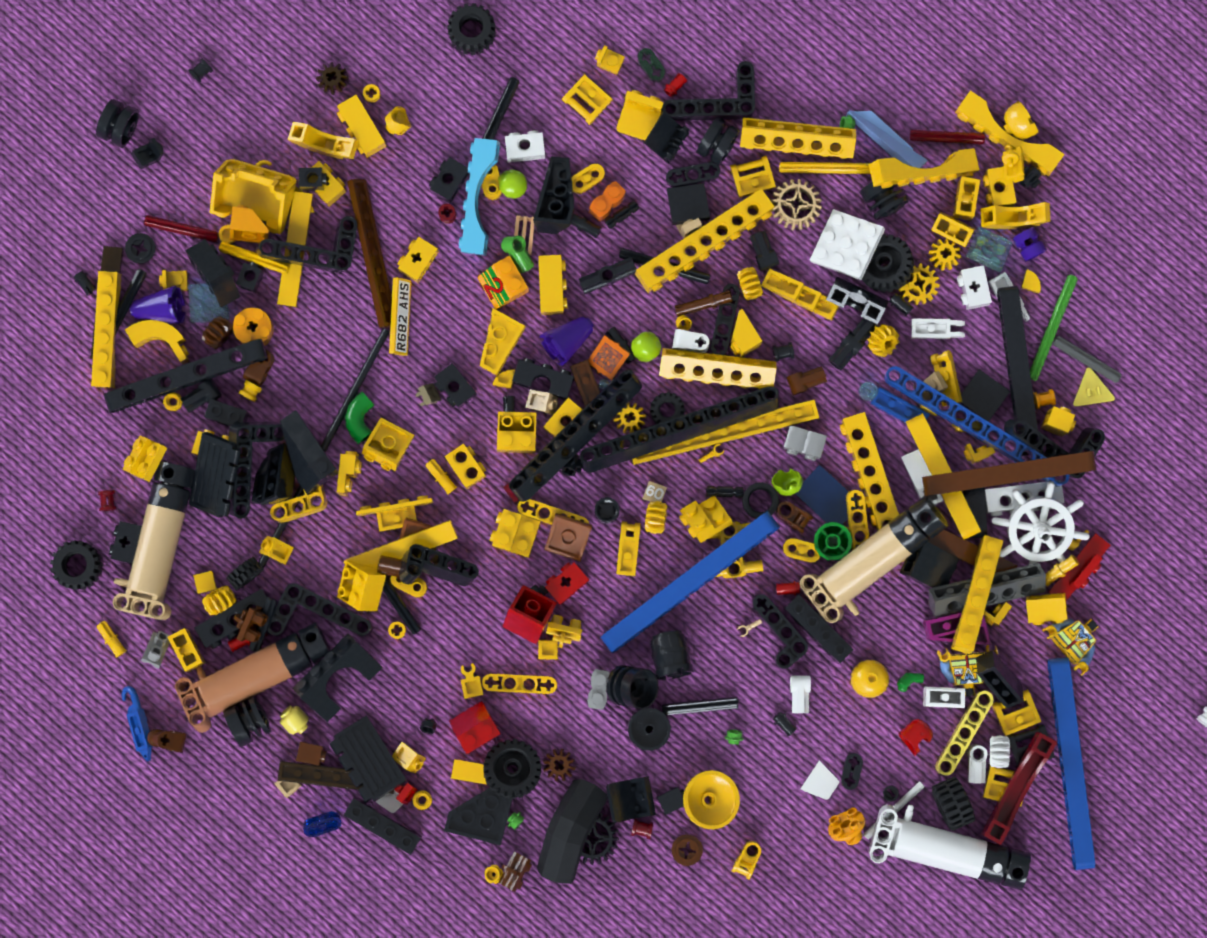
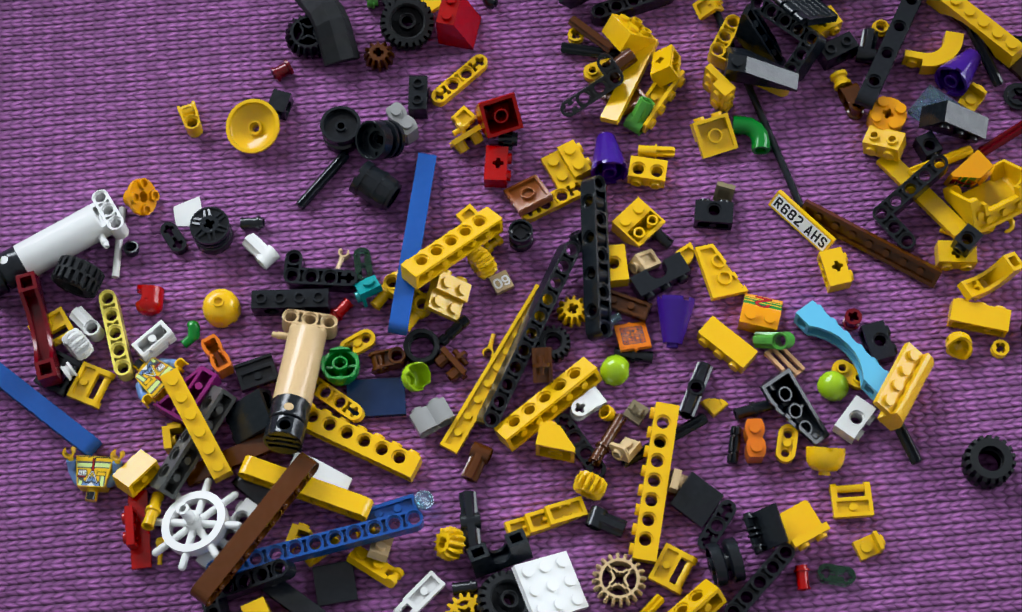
camera: 140 degrees right, 15 degrees down
(217, 332) = (905, 90): reddish brown gear -> none
(278, 309) = (884, 143): none -> yellow brick
(364, 530) = (665, 66): none -> yellow brick
(388, 615) = (591, 34): none -> reddish brown axle
(426, 513) = (638, 116): none -> bright green piece
(471, 685) = (491, 49): yellow plate -> none
(472, 129) = (902, 386): none -> yellow brick
(482, 505) = (608, 159): none -> dark purple cone
(565, 698) = (418, 97): none -> black brick
(574, 140) = (825, 459): none -> yellow cylinder
(604, 254) = (714, 406): none -> yellow tile
(630, 799) = (309, 76): black bracket -> none
(662, 304) = (636, 412): none -> dark tan tile
(693, 857) = (242, 81): reddish brown gear -> none
(695, 396) = (542, 365): none -> reddish brown hips
(699, 283) = (626, 449): none -> tan bracket
(720, 542) = (451, 248): none -> yellow brick
(734, 736) = (279, 183): bright green plate -> none
(741, 611) = (358, 265): none -> clear green beam
(751, 475) = (457, 370): none -> reddish brown hips
(756, 581) = (367, 288): none -> teal bracket
(782, 352) = (514, 465): black bush -> none
(812, 749) = (212, 240): none -> black wheel
(892, 601) = (256, 373): none -> black plate
(911, 634) = (217, 356): none -> orange brick
(999, 679) = (123, 386): black brick -> none
(1025, 735) = (68, 371): none -> white bush

